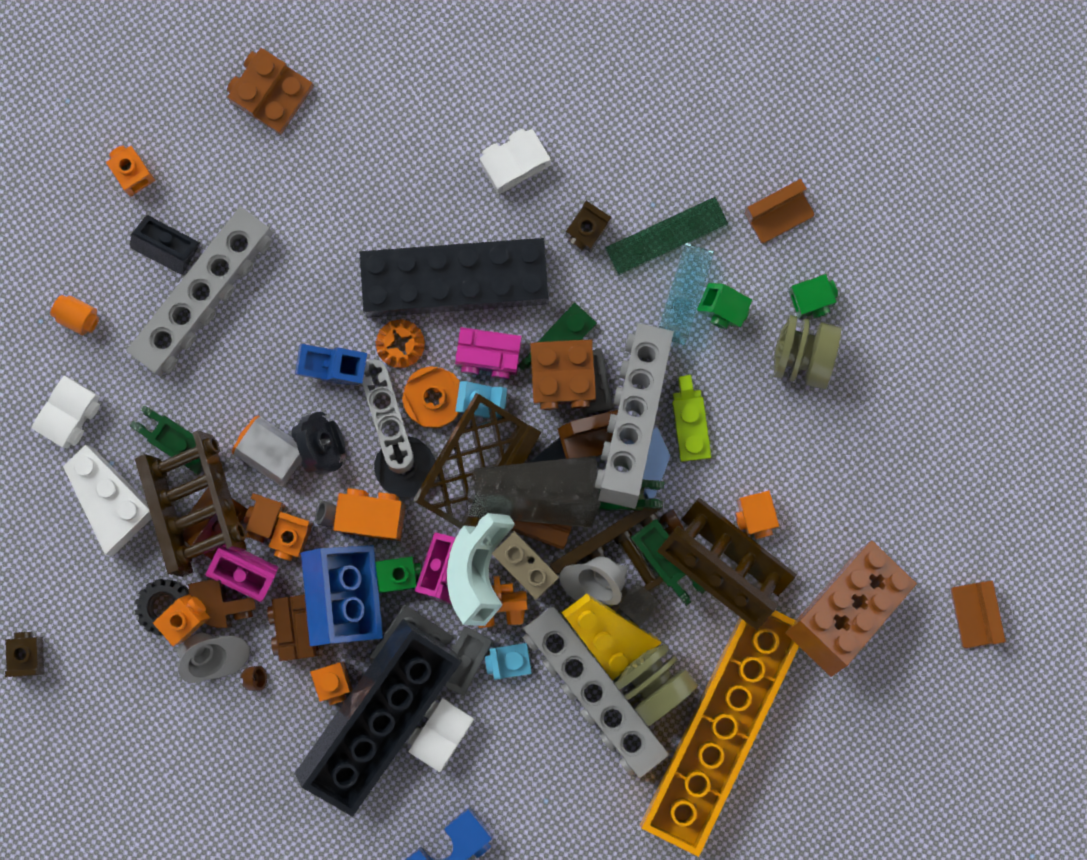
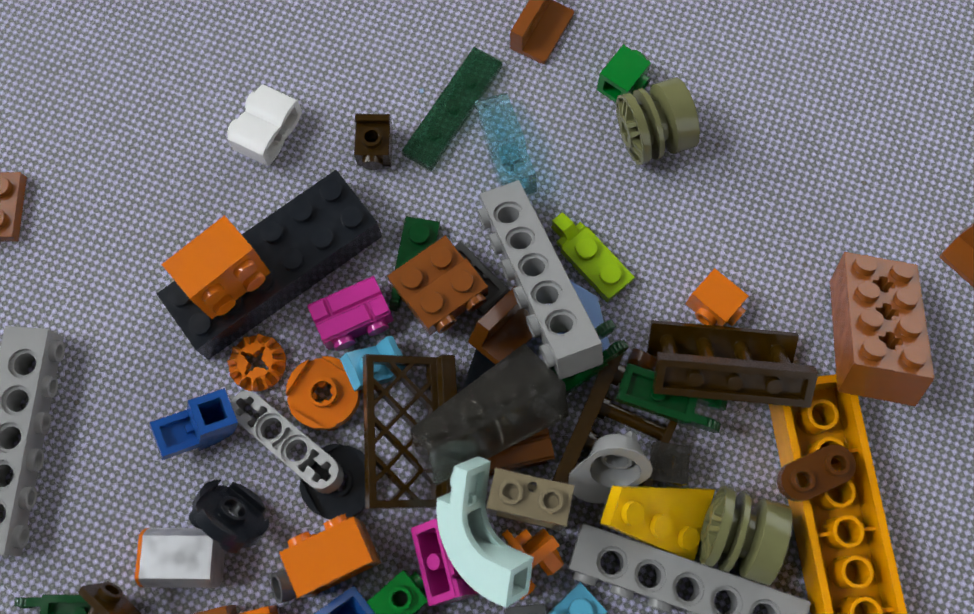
camera: 35 degrees left, 10 degrees down
(413, 270) = (217, 268): none -> orange brick
(724, 306) = (549, 129): green brick -> none
(730, 675) = (818, 473): none -> reddish brown plate

